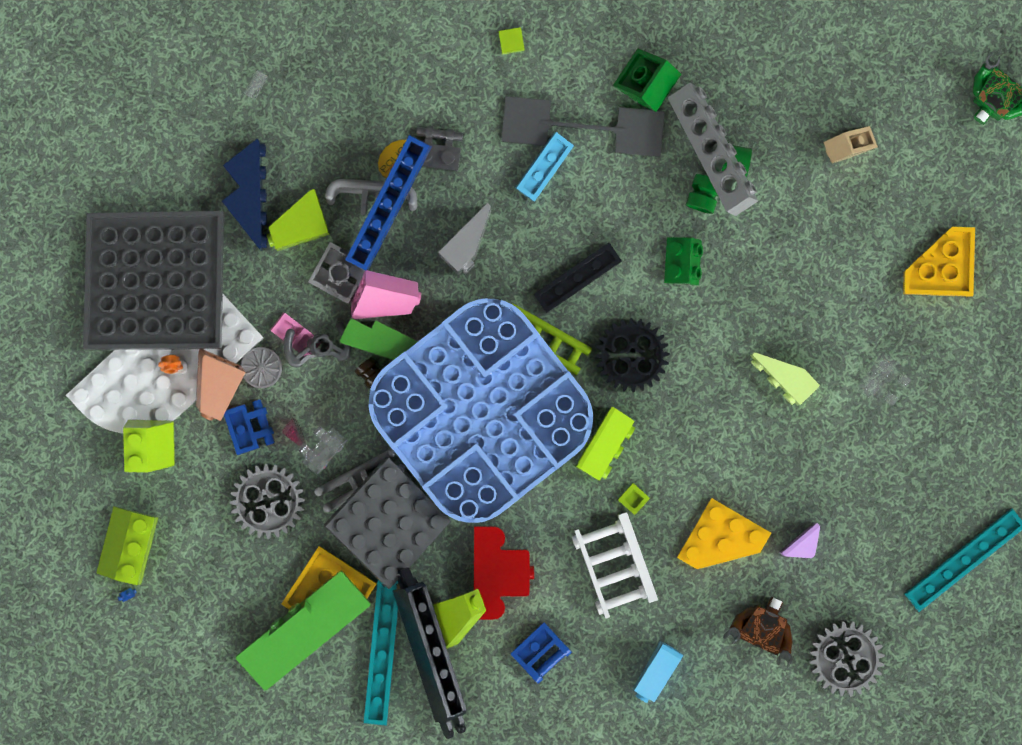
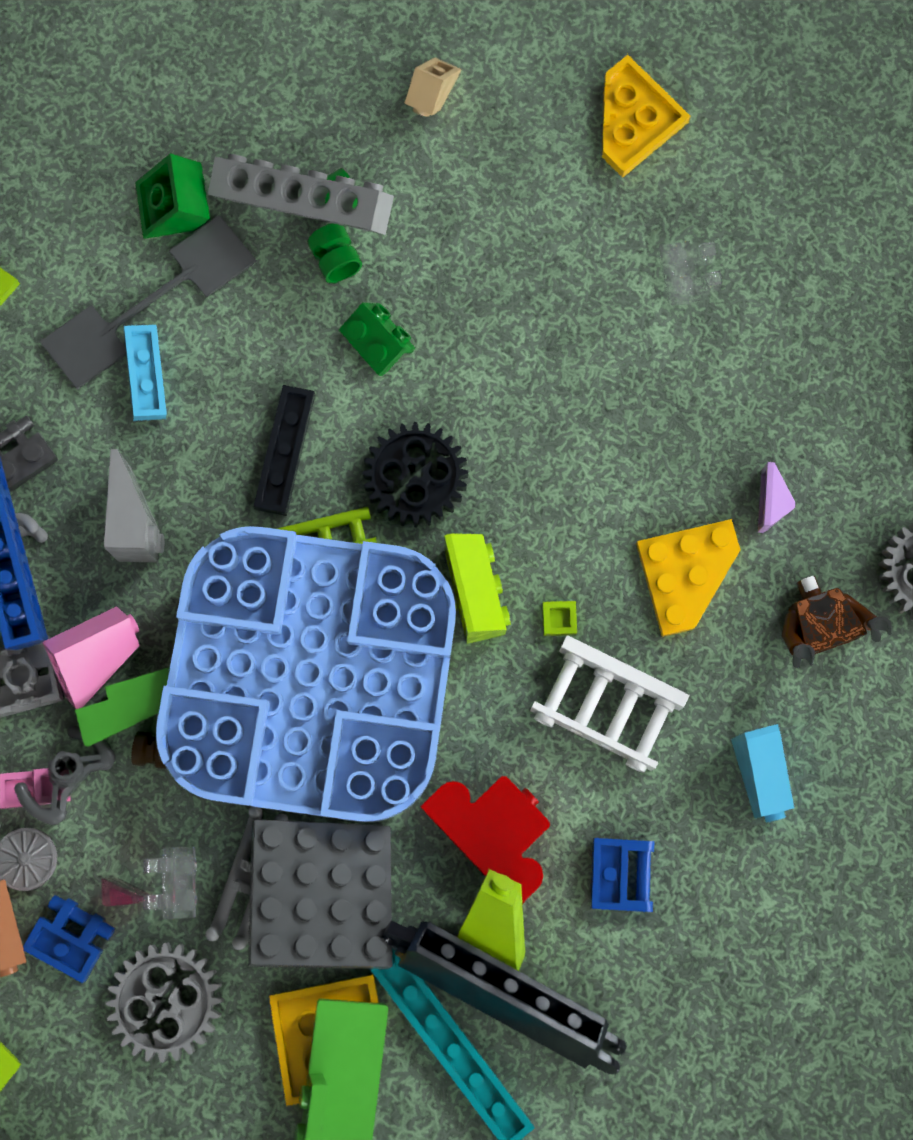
camera: 45 degrees left, 10 degrees down
(791, 379) = (598, 350): yellowish green slope -> none

